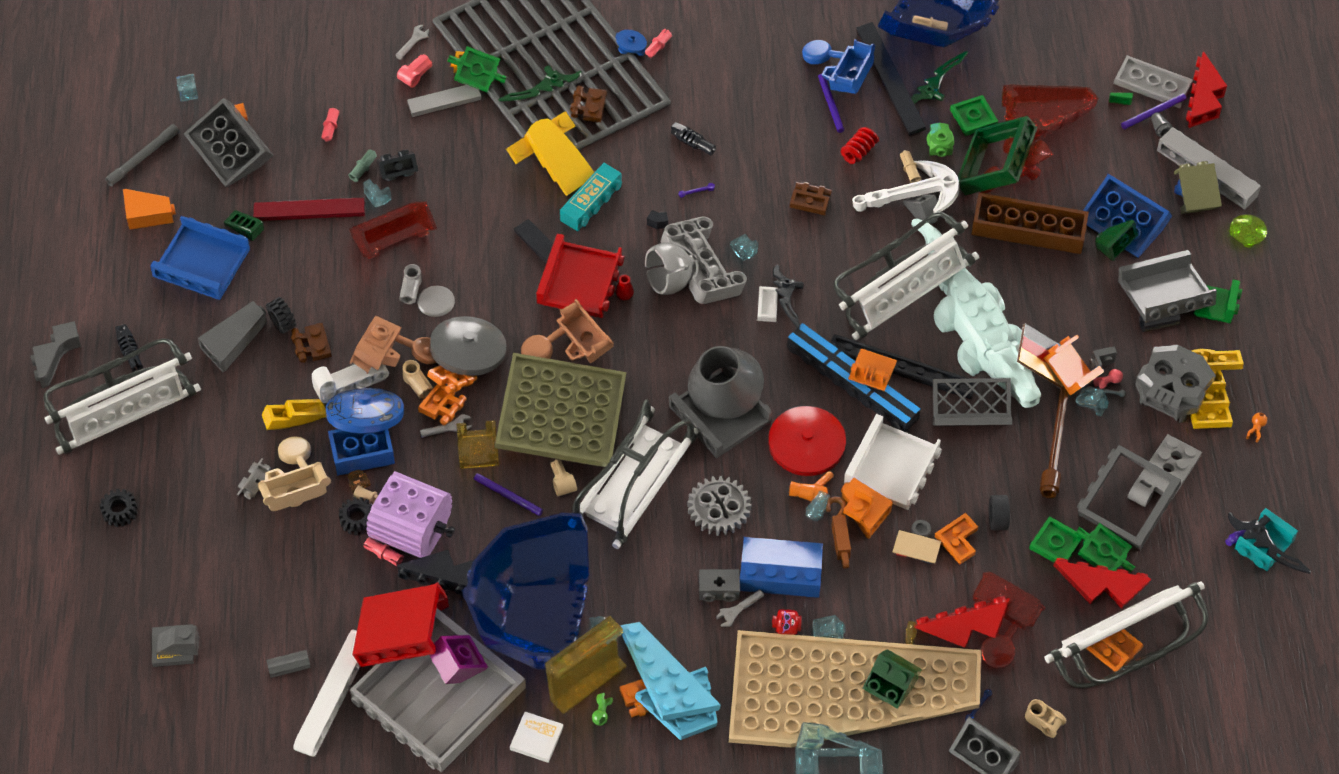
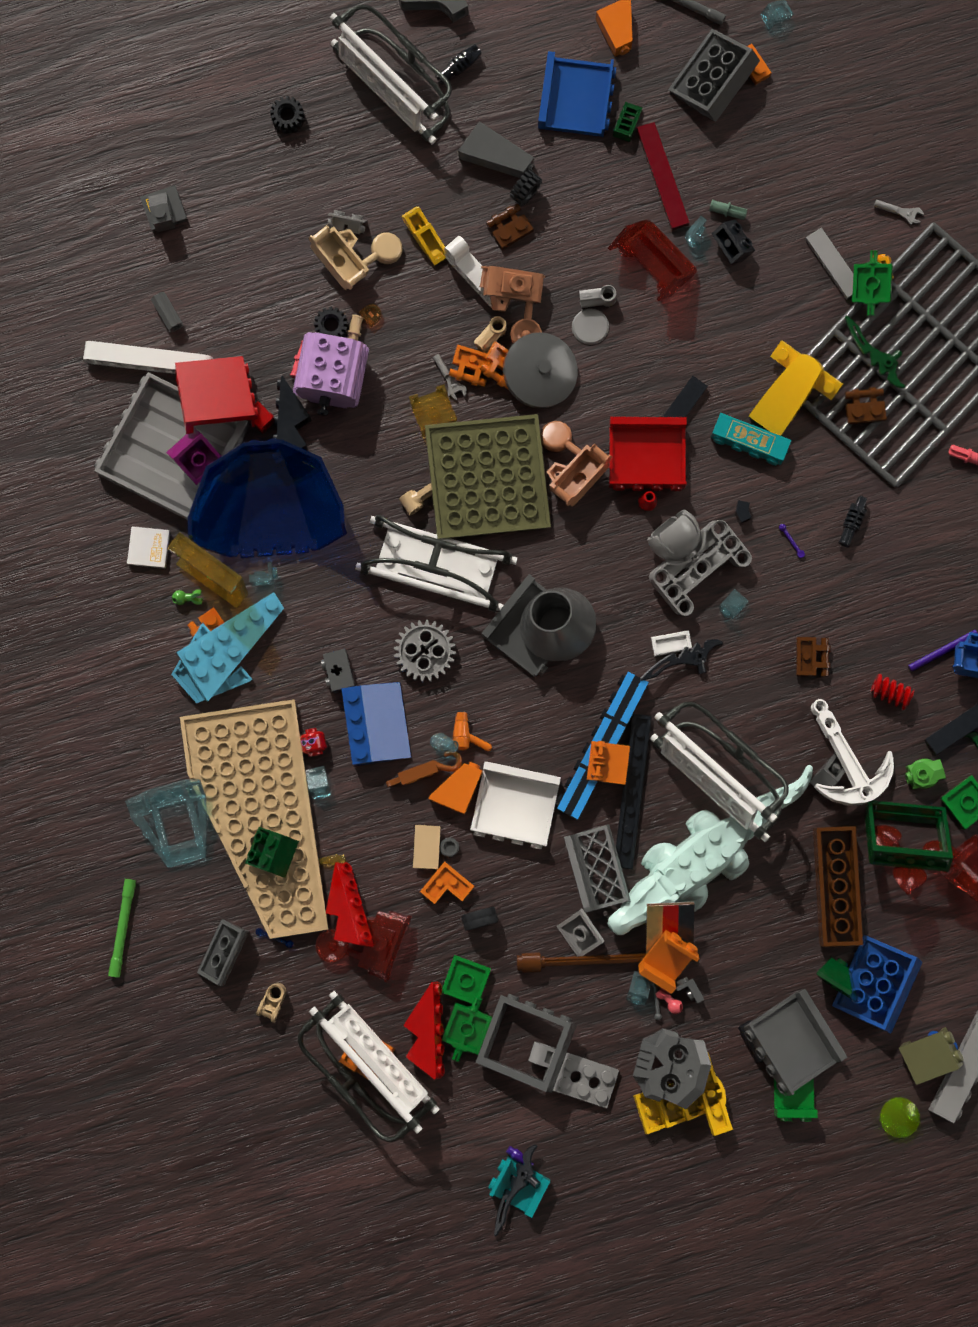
camera: 80 degrees right, 25 degrees up
(330, 124) = (769, 163): coral axle -> none
(360, 450) = (400, 306): blue brick -> none
(364, 410) = (437, 296): blue dish -> none
(411, 74) = (855, 222): coral piece -> none
(508, 494) = (390, 454): dark purple bar -> none
(631, 42) = (959, 427): blue piece -> none
(731, 613) = (315, 689): light grey piece -> none
(807, 441) = (521, 717): red dish -> none
(859, 504) = (448, 782): orange bracket -> none
(910, 166) = (881, 749): tan axle -> none
(1029, 433) = (580, 933): none -> light grey slope
(1258, 421) = (655, 1160): orange arm -> none

